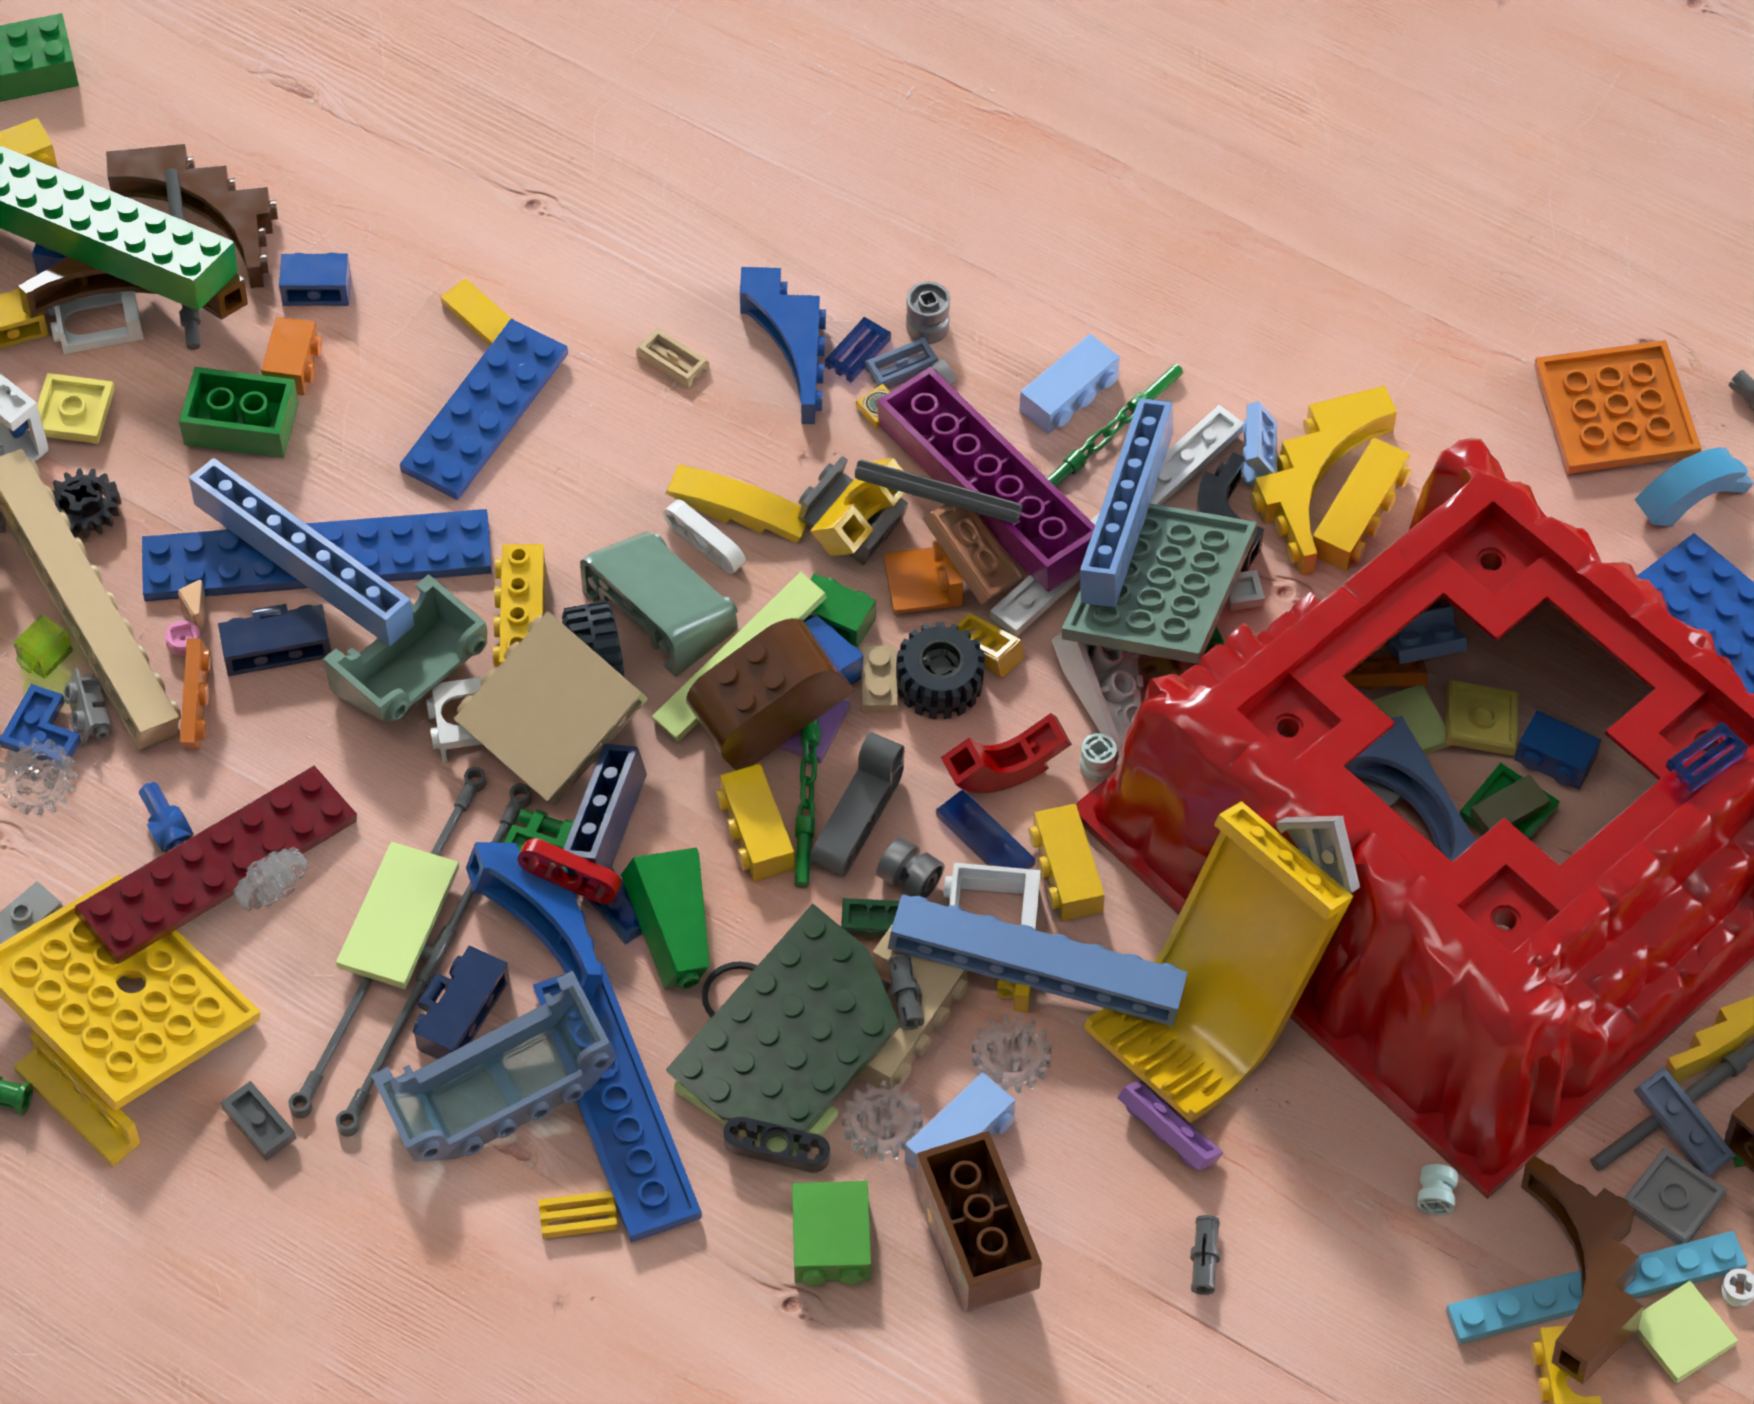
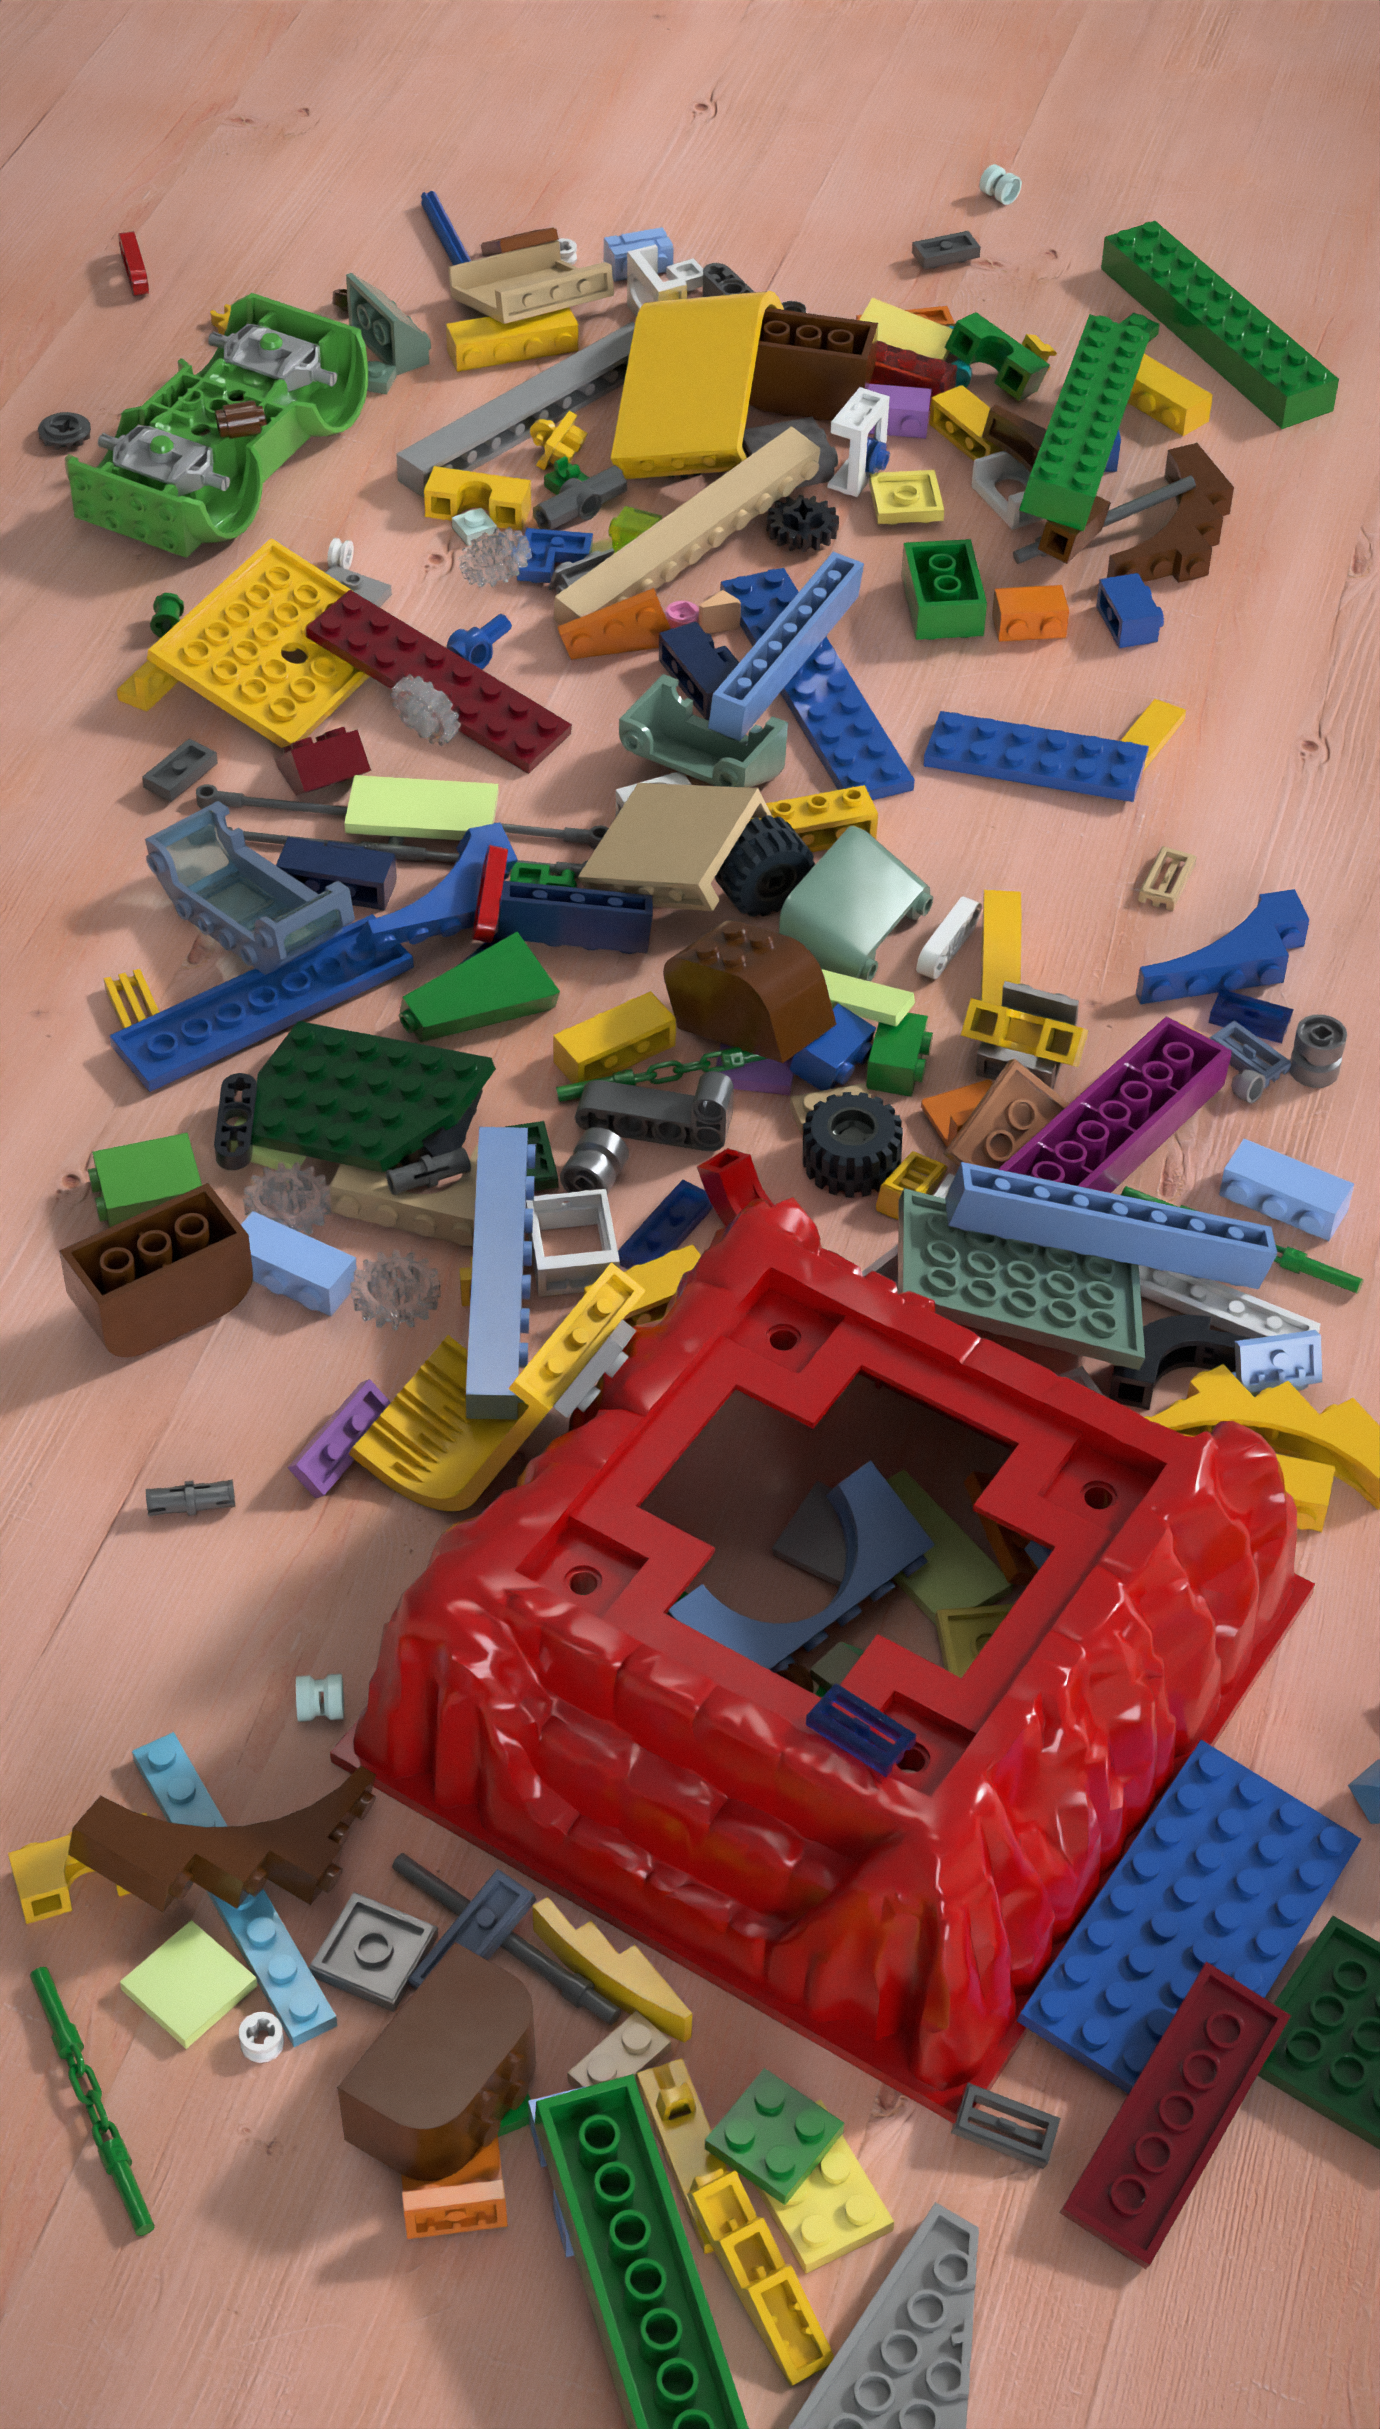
camera: 75 degrees right, 10 degrees down
(296, 989) = (323, 763): none -> dark red slope
(938, 491) = (1049, 1067): dark grey axle -> none

